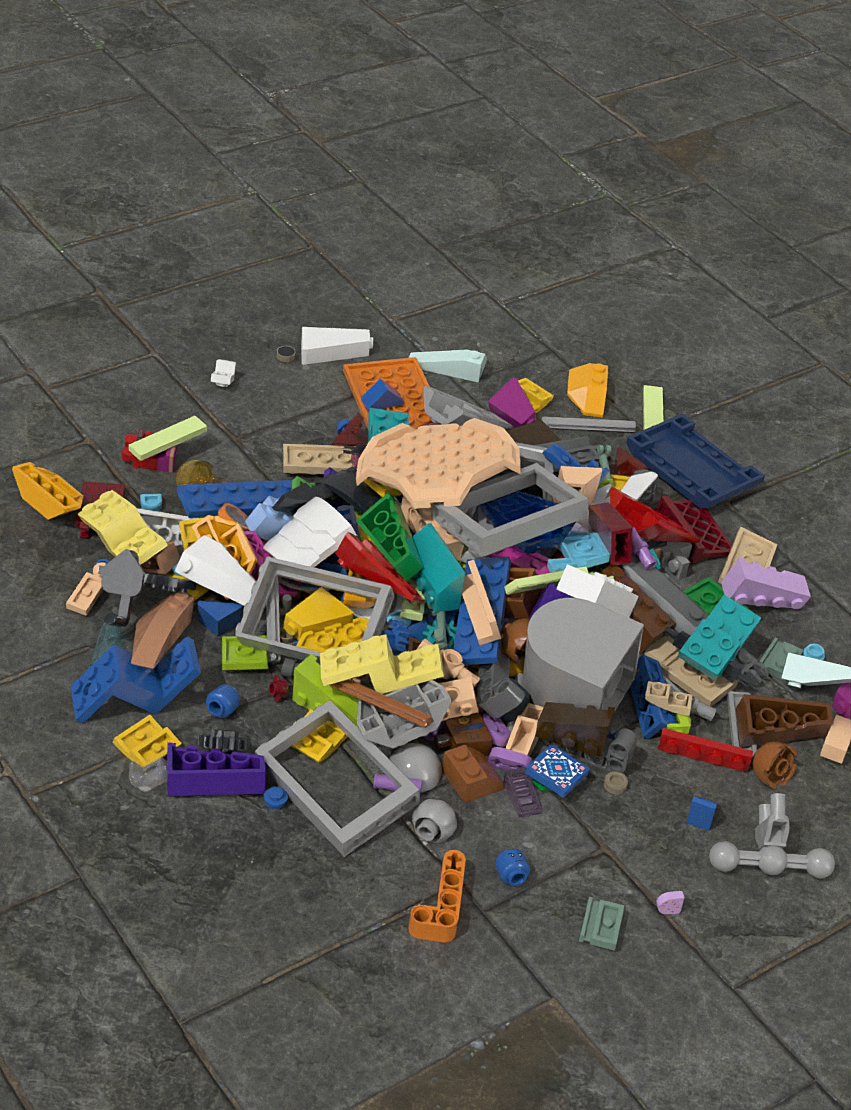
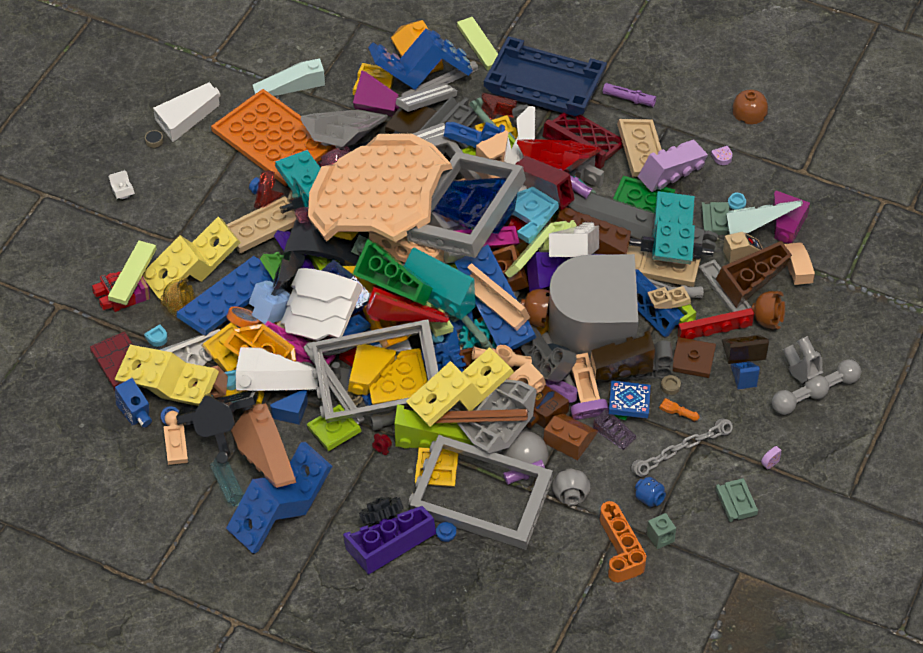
camera: 25 degrees left, 10 degrees up
(46, 491) = (74, 372): light orange wedge -> none
(76, 547) = (132, 403): none -> blue torso
(145, 741) = (319, 541): yellow slope -> none
(148, 776) = (345, 566): clear bracket -> none
(222, 701) = (350, 477): blue head -> none
(234, 454) = (192, 258): none -> light yellow bracket
(381, 396) = (267, 143): blue slope -> none
(495, 909) = (661, 531): none -> sand green brick
(561, 426) = (426, 97): none -> light grey tile
(578, 391) = (420, 58): none -> blue bracket
(601, 804) = (672, 407): none -> orange piece
(634, 844) = (719, 427): none -> light grey piece
(659, 769) = (693, 357): none -> reddish brown plate
(720, 789) = (745, 348): none -> dark brown slope
(776, 520) = (627, 94): none -> medium lavender pin
(787, 688) = (740, 245): none -> tan slope
(829, 608) = (722, 155): none -> lavender tile

